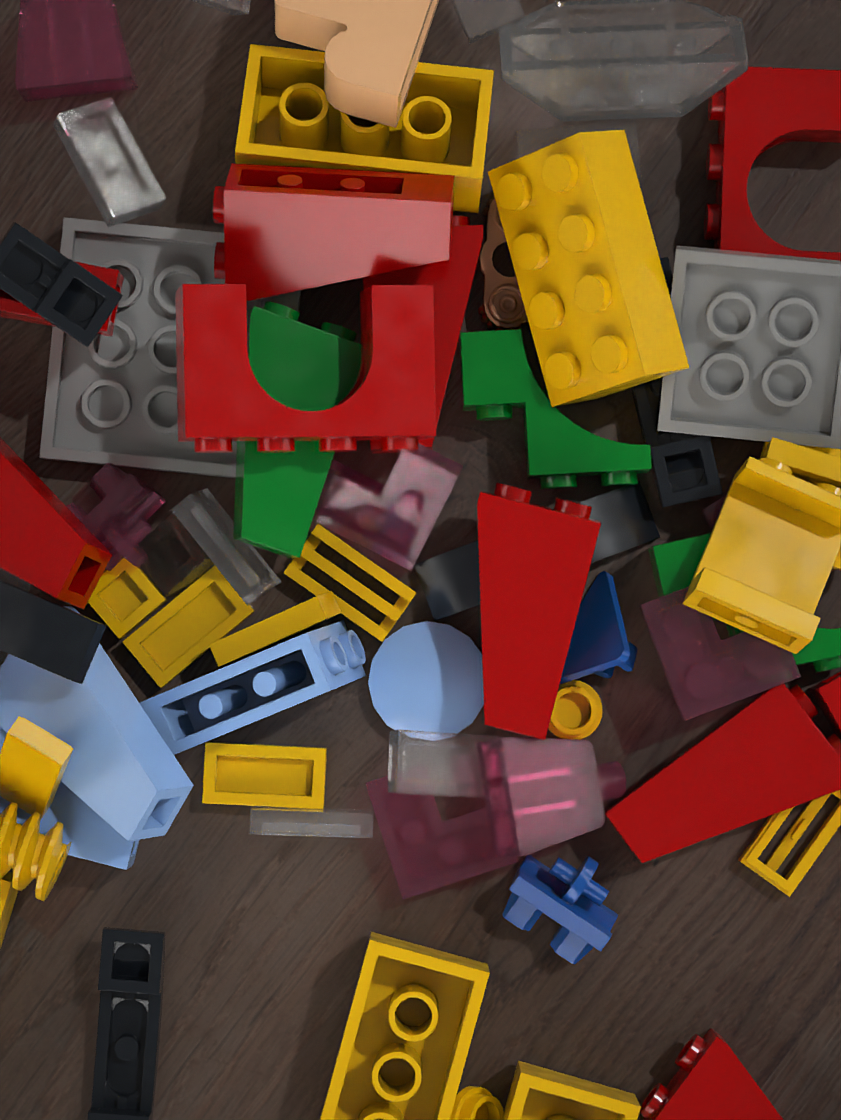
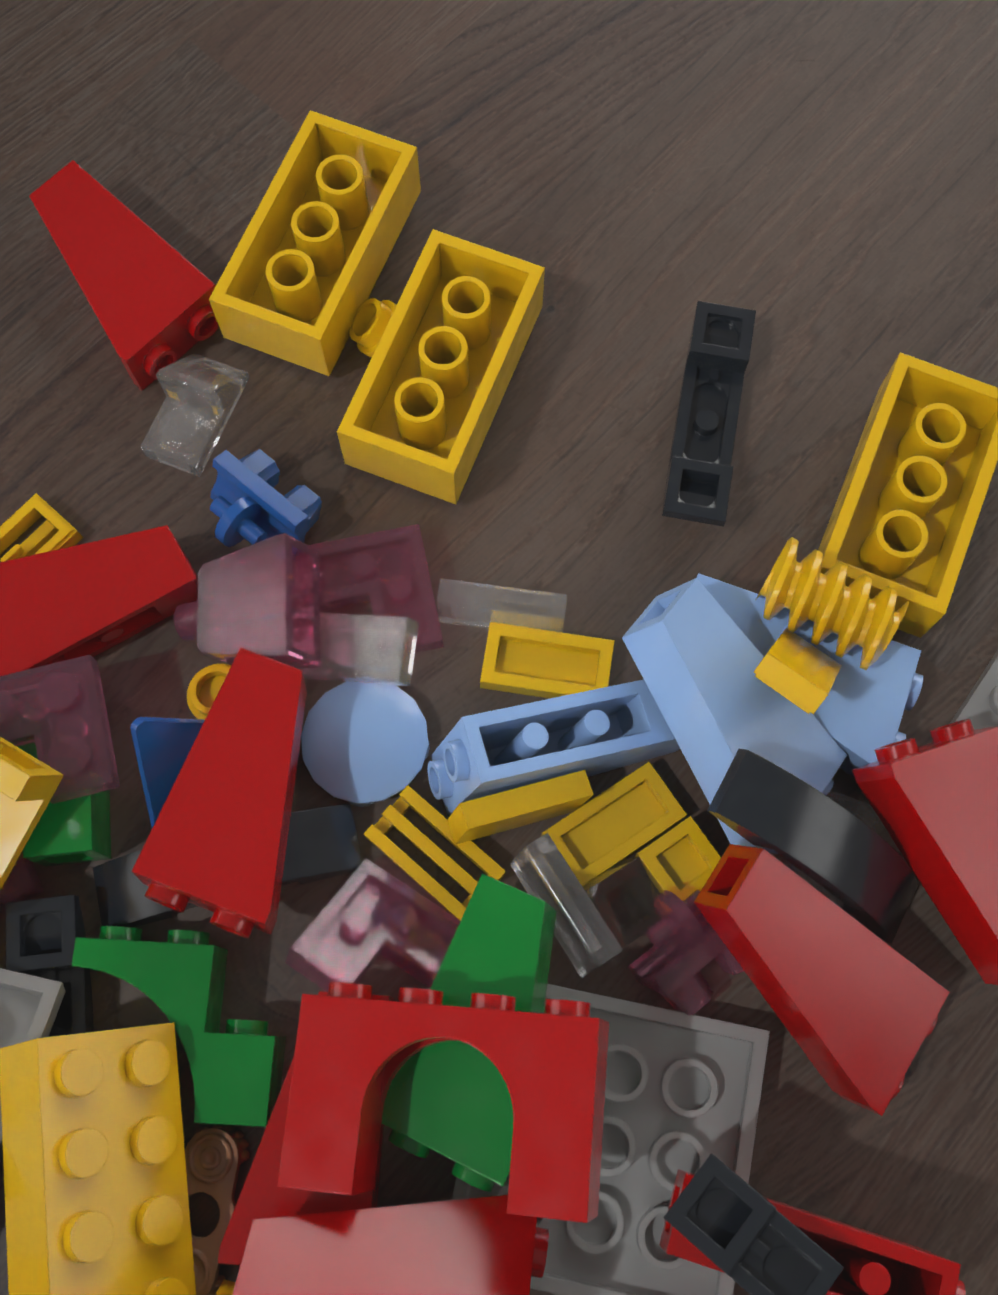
camera: 175 degrees left, 15 degrees down
(649, 1006) = (194, 413): none -> clear slope

